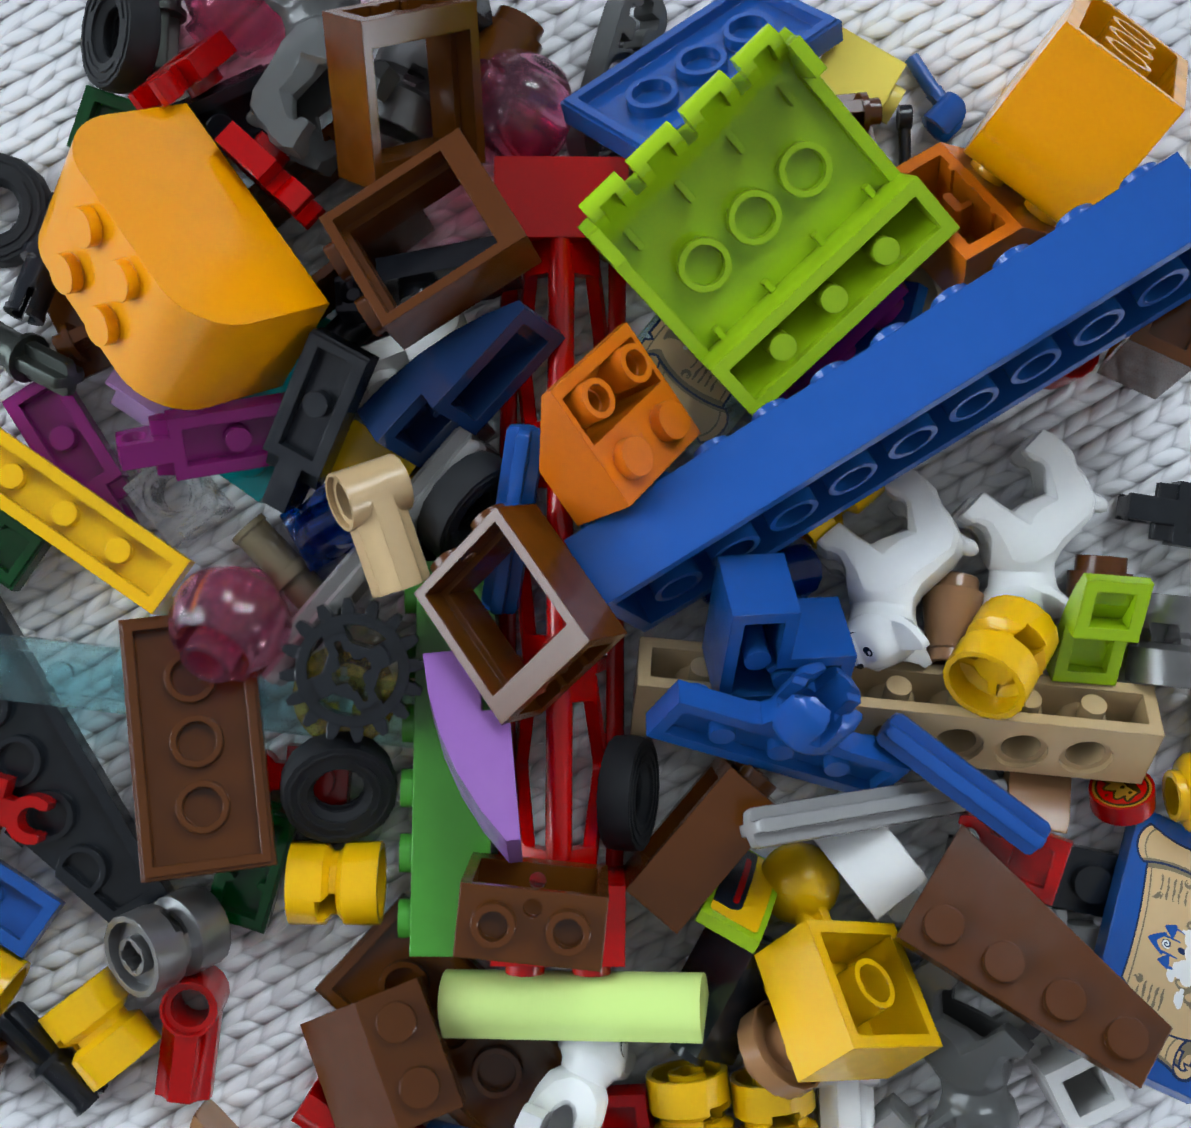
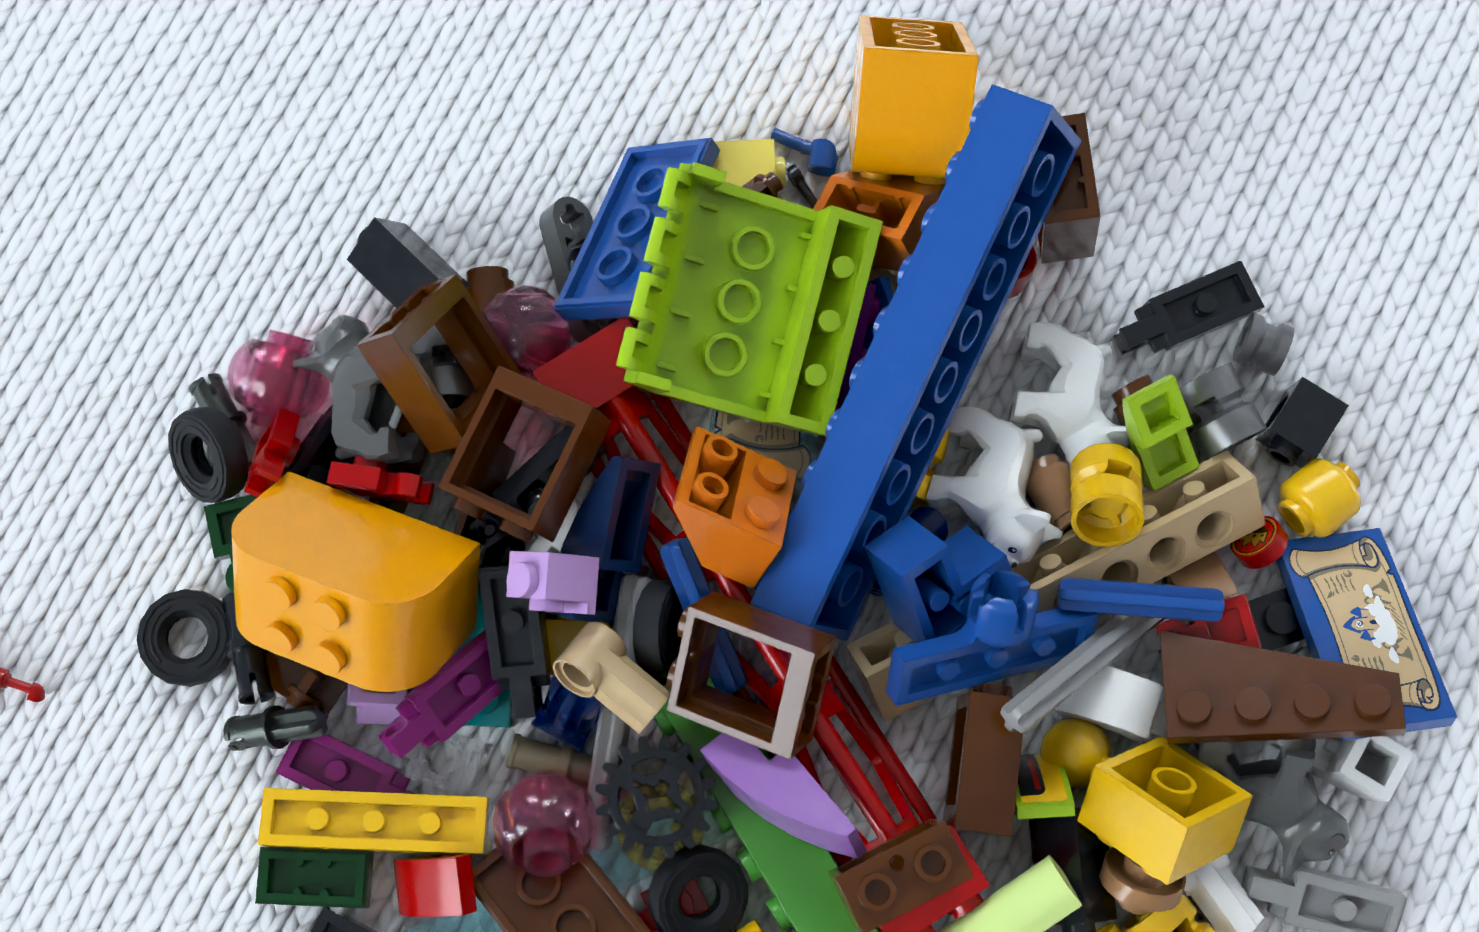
camera: 30 degrees left, 10 degrees down
(89, 615) = (435, 885): none -> red slope
(377, 391) = (554, 581): none -> lavender brick
(628, 793) = (910, 764): black tyre -> none

